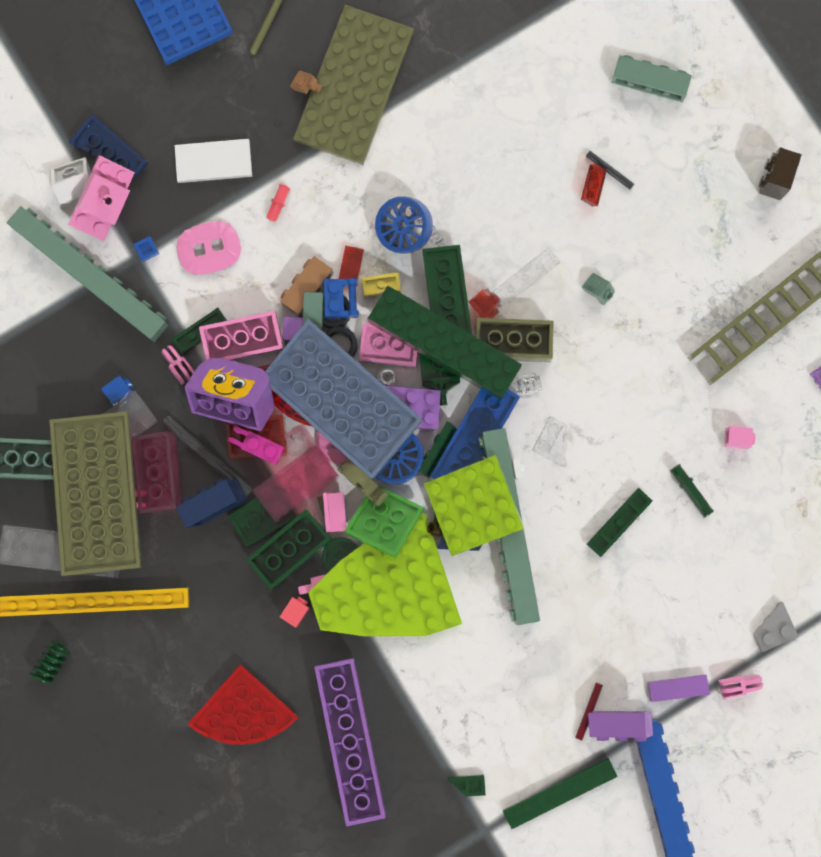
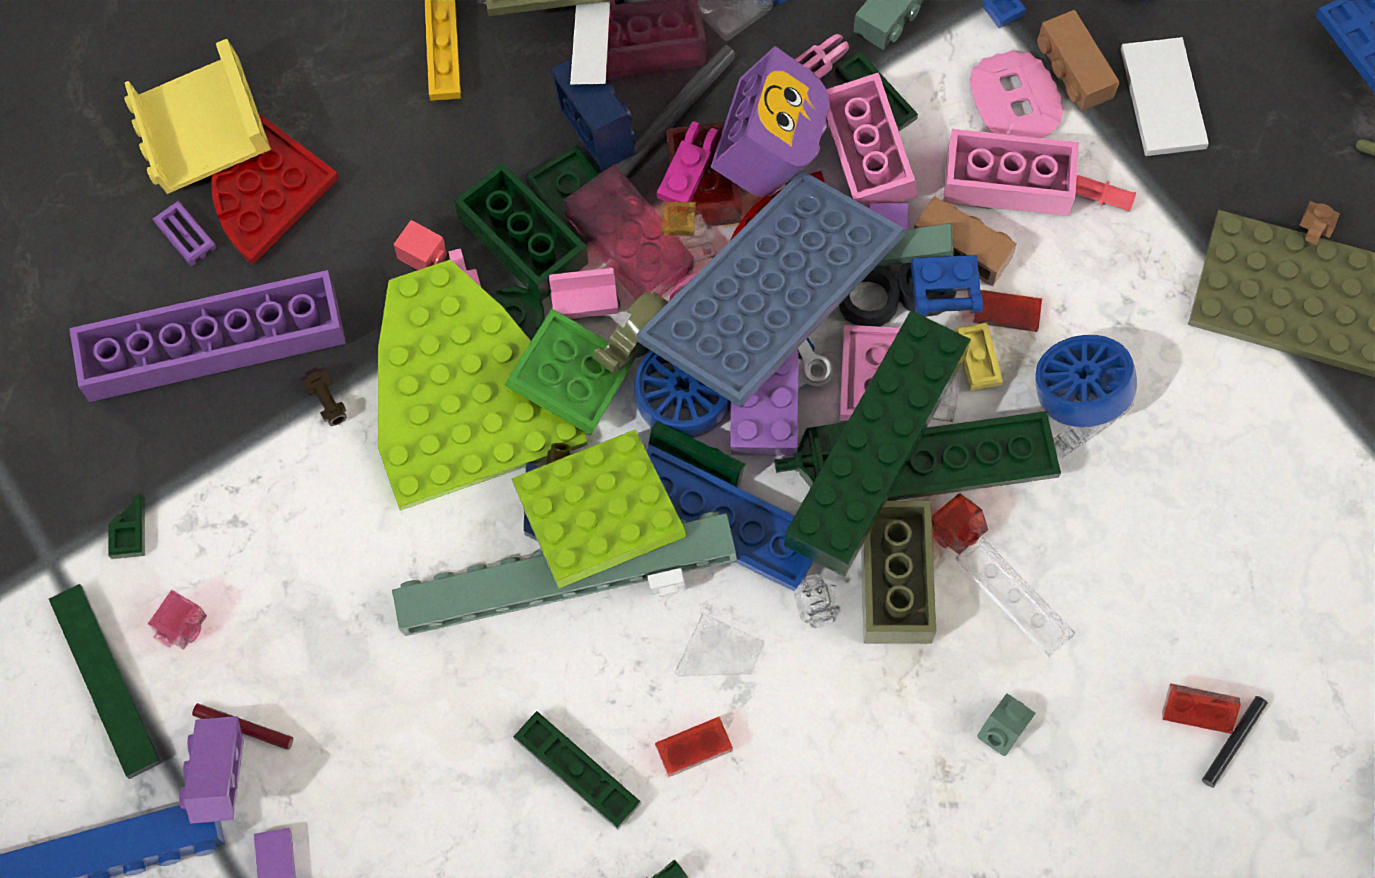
camera: 85 degrees right, 15 degrees down
(169, 502) = (590, 43): none -> white sticker
(187, 208) = (1077, 60): none -> medium nougat brick
(199, 755) = (198, 122): none -> light yellow panel
(264, 255) = (1011, 172): none -> bright pink brick
(287, 750) = (199, 251): none -> medium lavender tile
(293, 452) = (678, 218): none -> clear yellow plate
(380, 673) = (317, 382): none -> dark brown bar
(528, 751) = (177, 621): none -> clear pink brick
(608, 457) = (693, 747): none -> clear red plate

